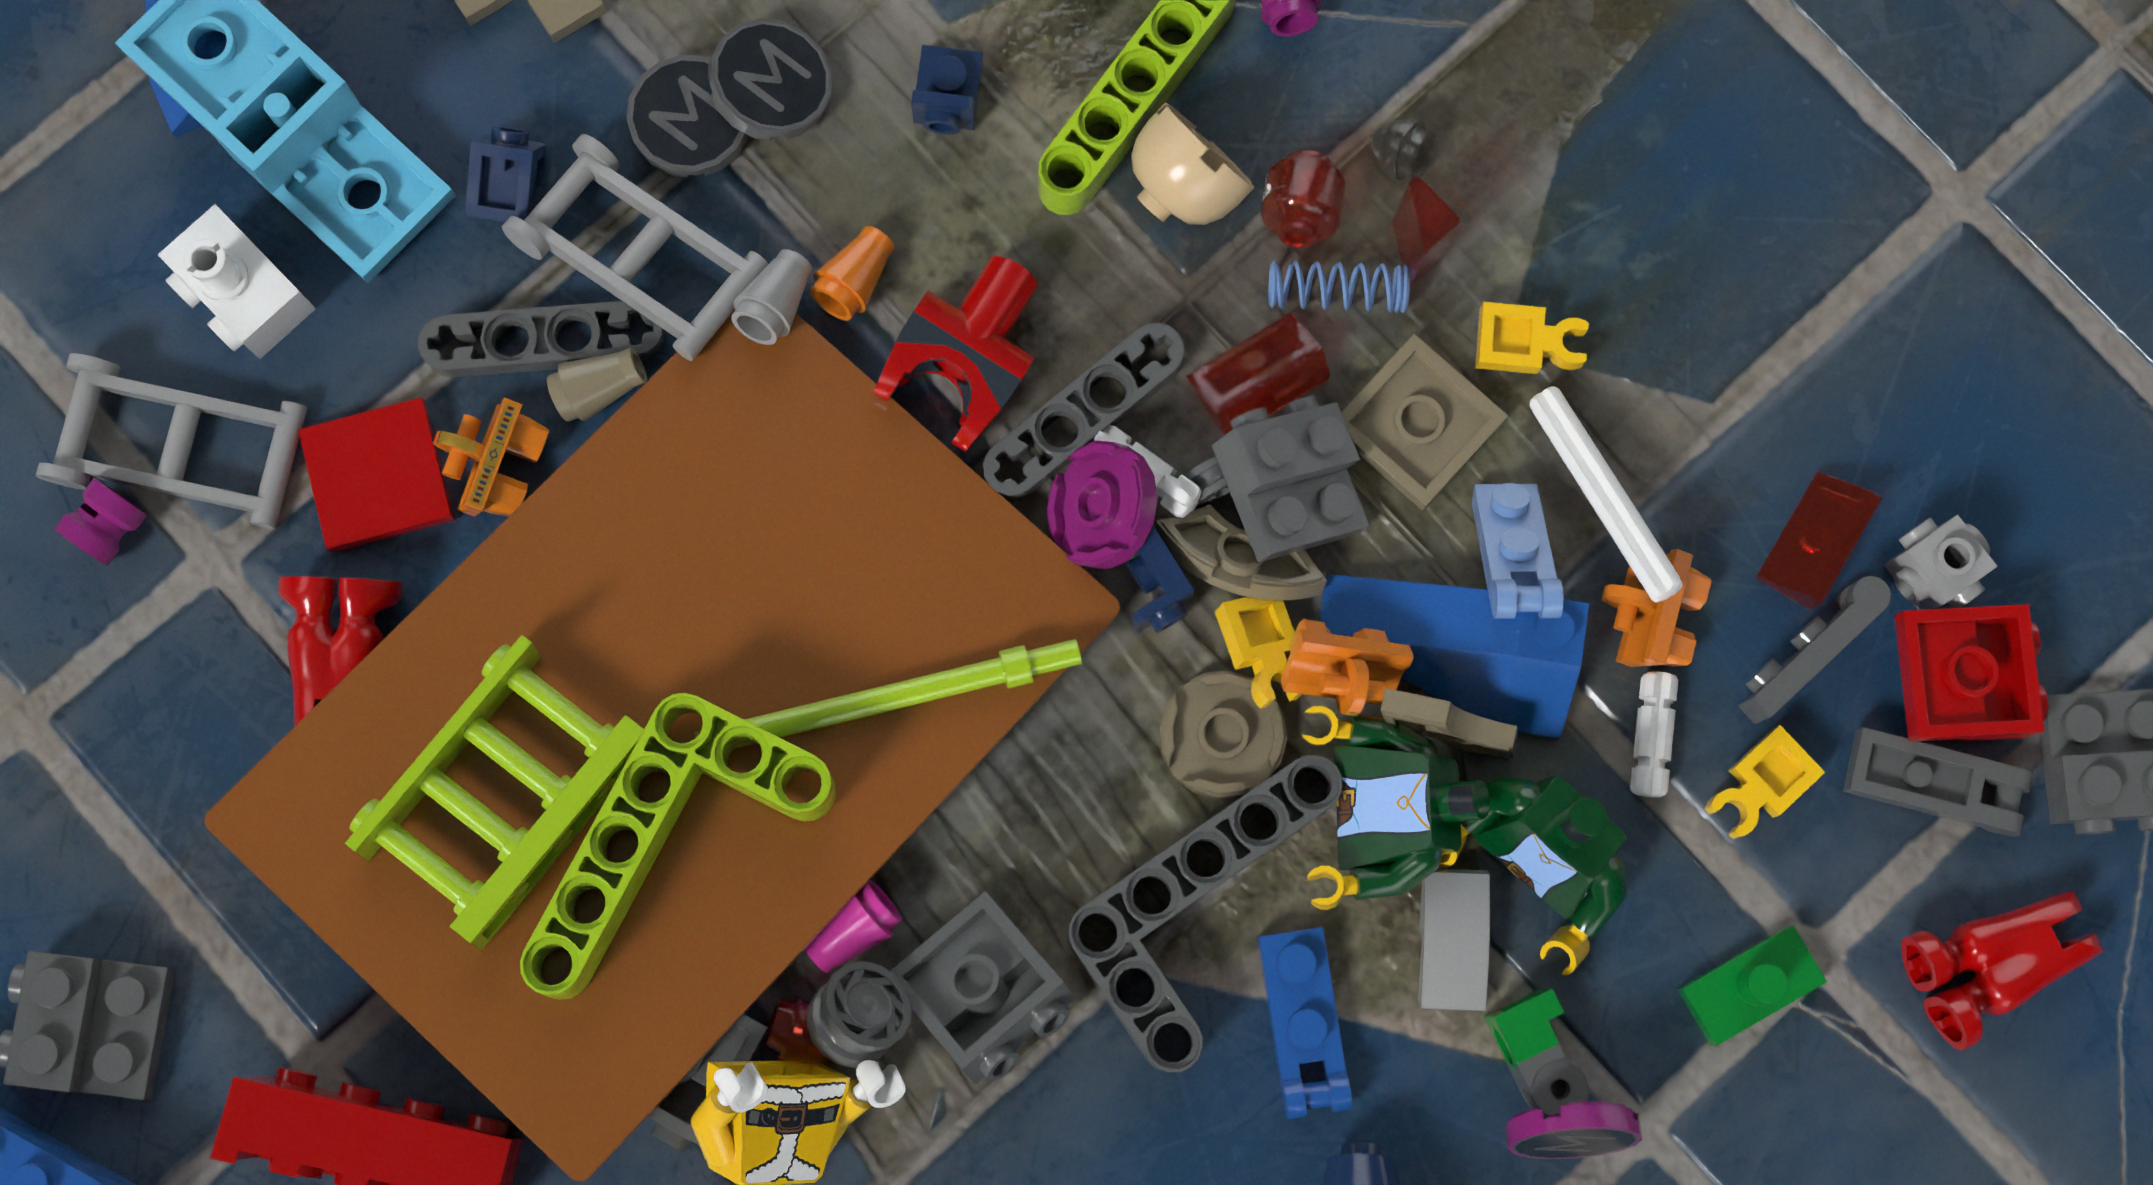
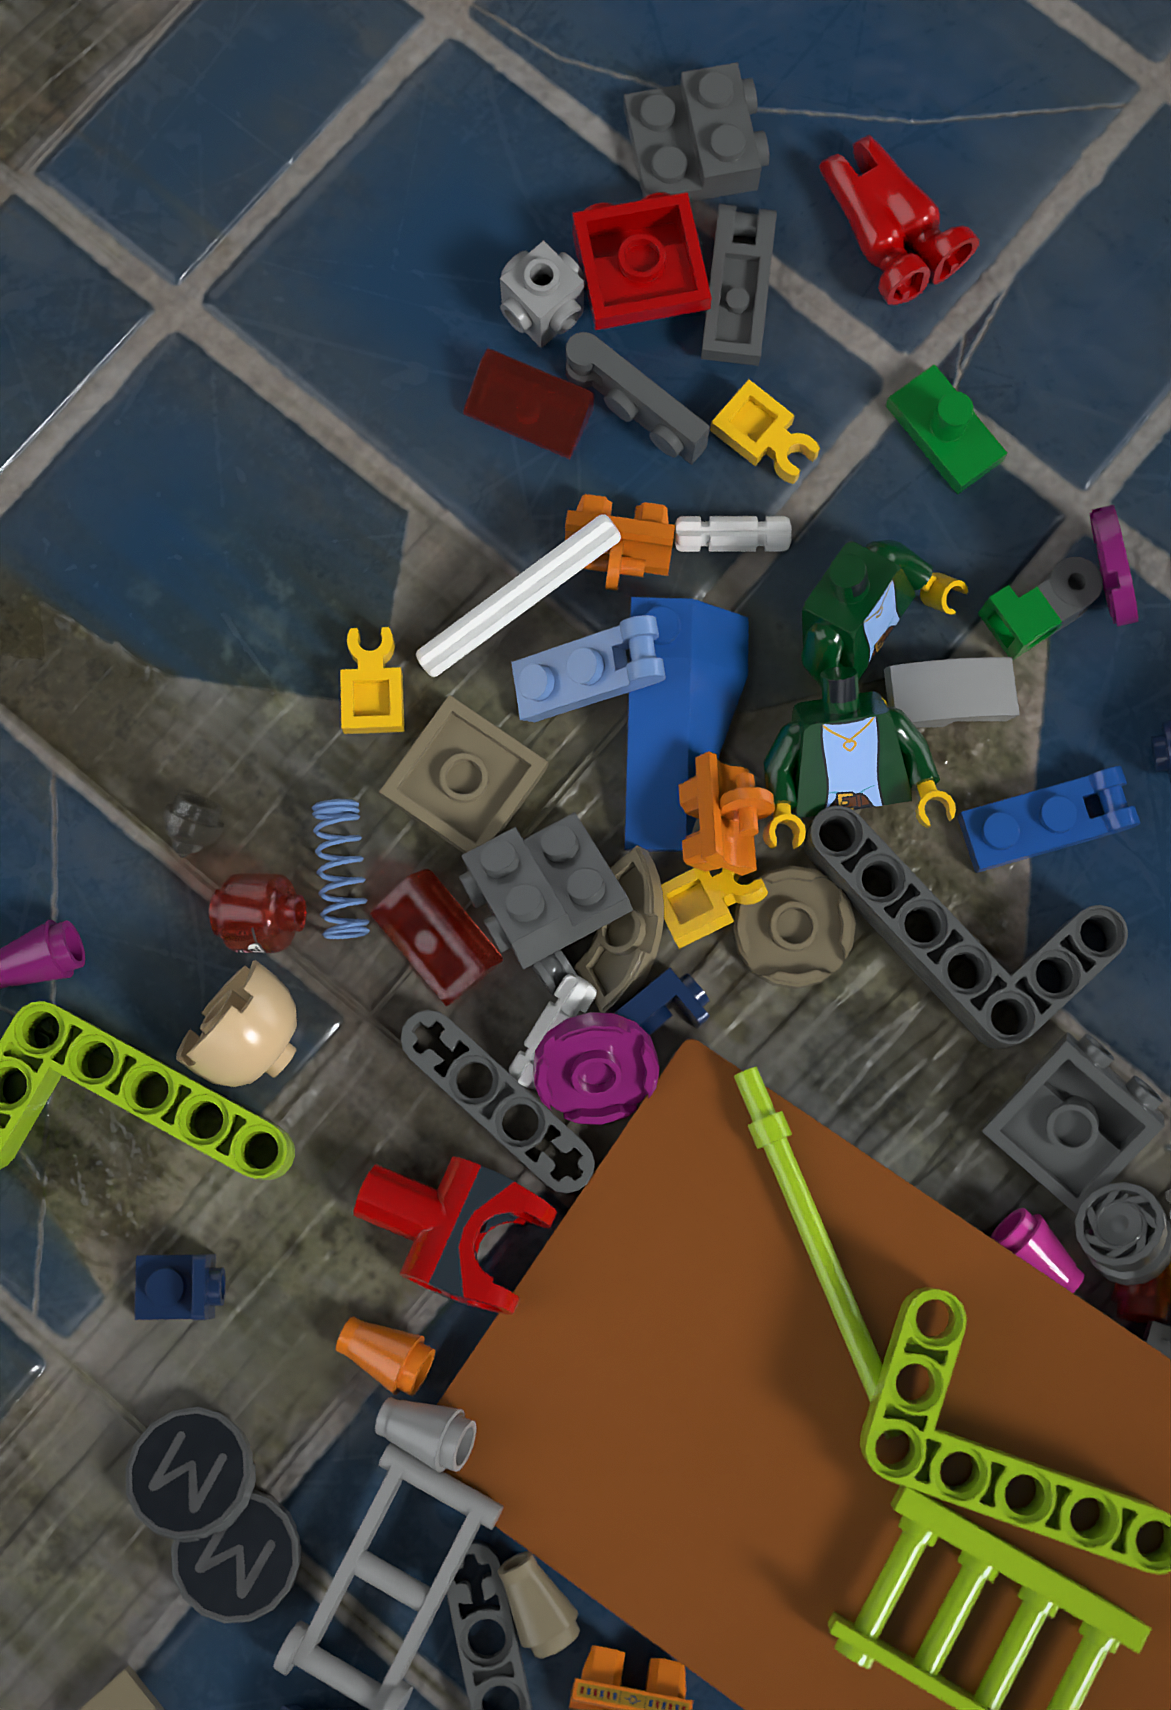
camera: 95 degrees left, 0 degrees up
(1423, 228) = (281, 791): clear red slope -> none
(1450, 724) = (763, 713): dark tan tile -> none

